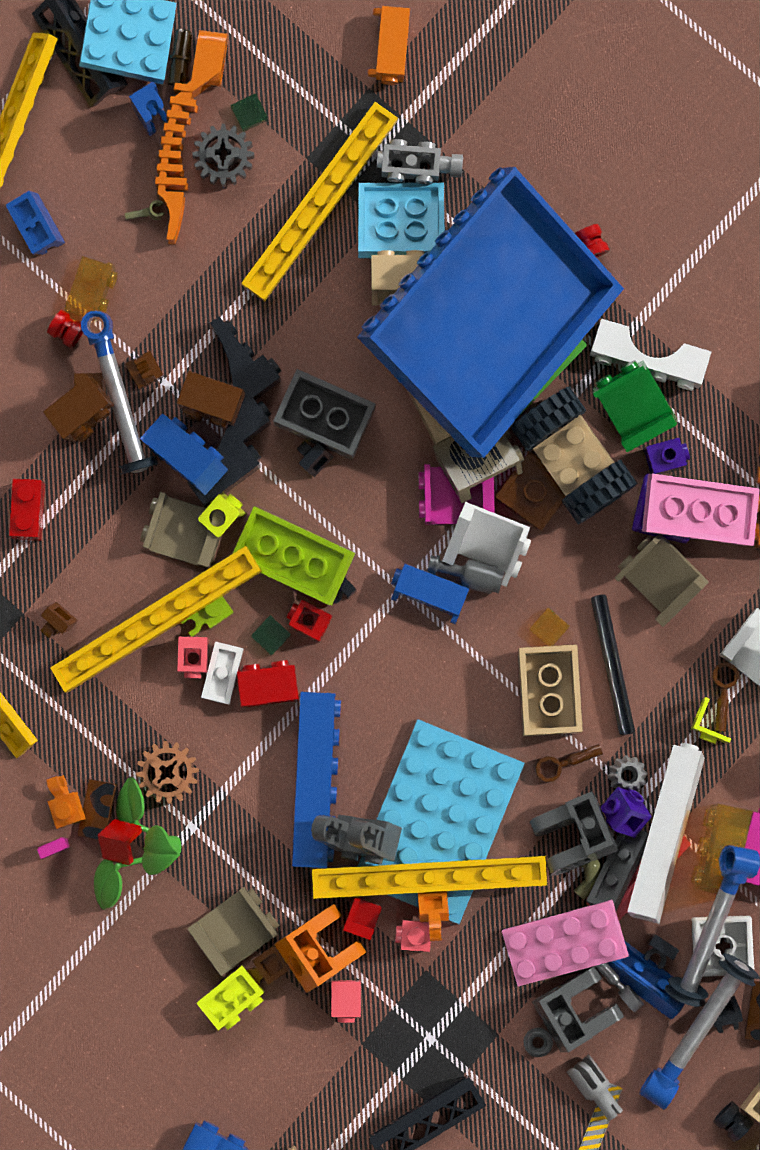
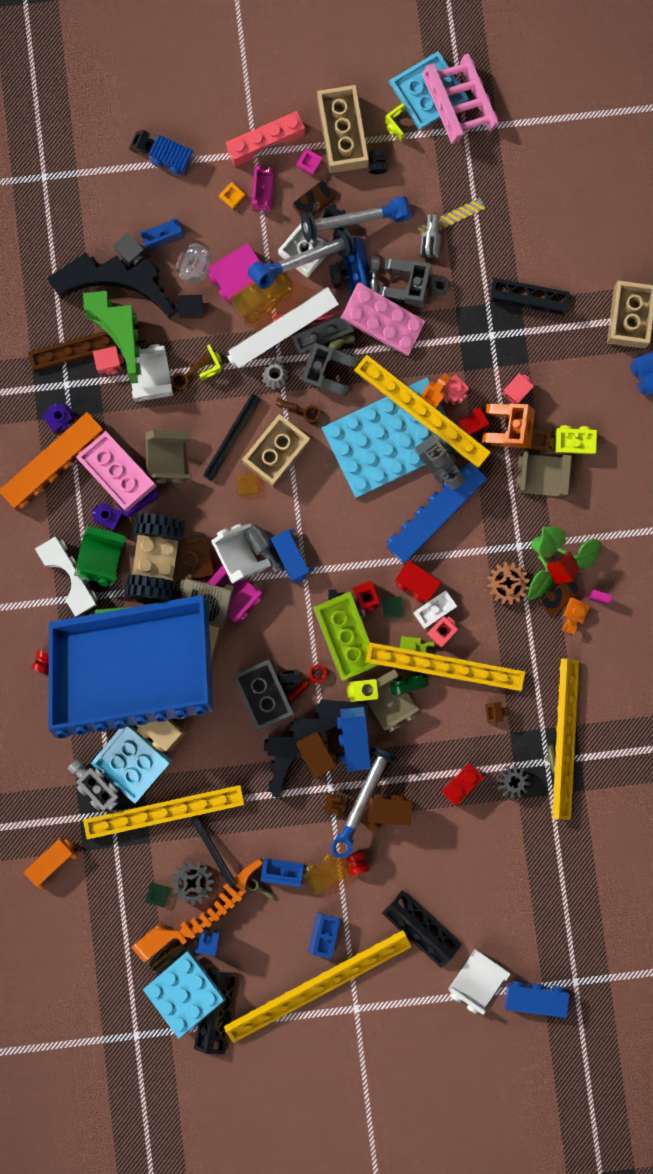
camera: 140 degrees left, 0 degrees up
(137, 249) = (282, 872): none -> blue hinge
(178, 566) = (405, 685): none -> dark green plate
(229, 206) = (213, 851): none -> black bar
(291, 466) = (304, 685): none -> red piece
(626, 812) = (293, 356): dark purple brick -> none

